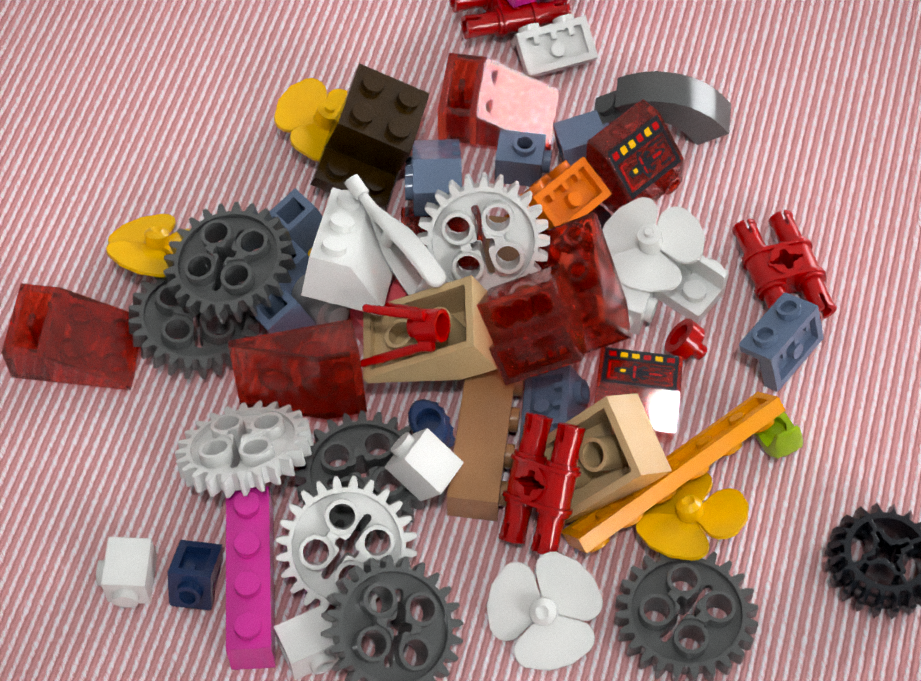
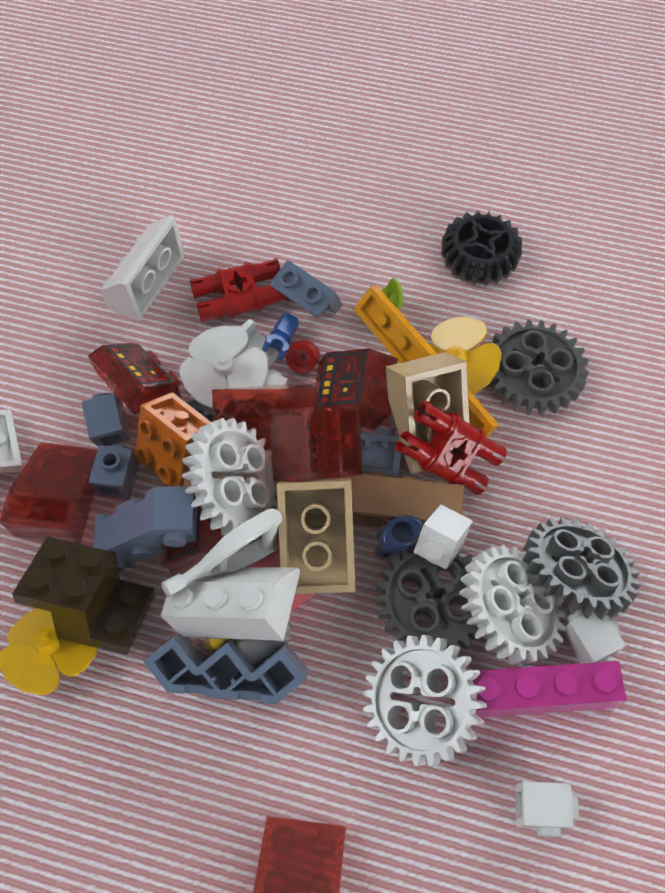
camera: 90 degrees left, 5 degrees up
(143, 244) = (186, 824): yellow piece -> none
(157, 323) = (280, 800): dark grey gear -> none
(193, 574) = (537, 743): dark blue bracket -> none
(229, 262) = (216, 756): dark grey gear -> none
(303, 367) = (345, 643): clear red slope -> none
(423, 324) = (327, 521): red plant -> none
(566, 595) = (542, 452): white piece -> none
(680, 99) = (70, 364): dark grey arch -> none
(712, 313) = (282, 334): none -> blue bar
(798, 163) = (144, 269): none -> white slope

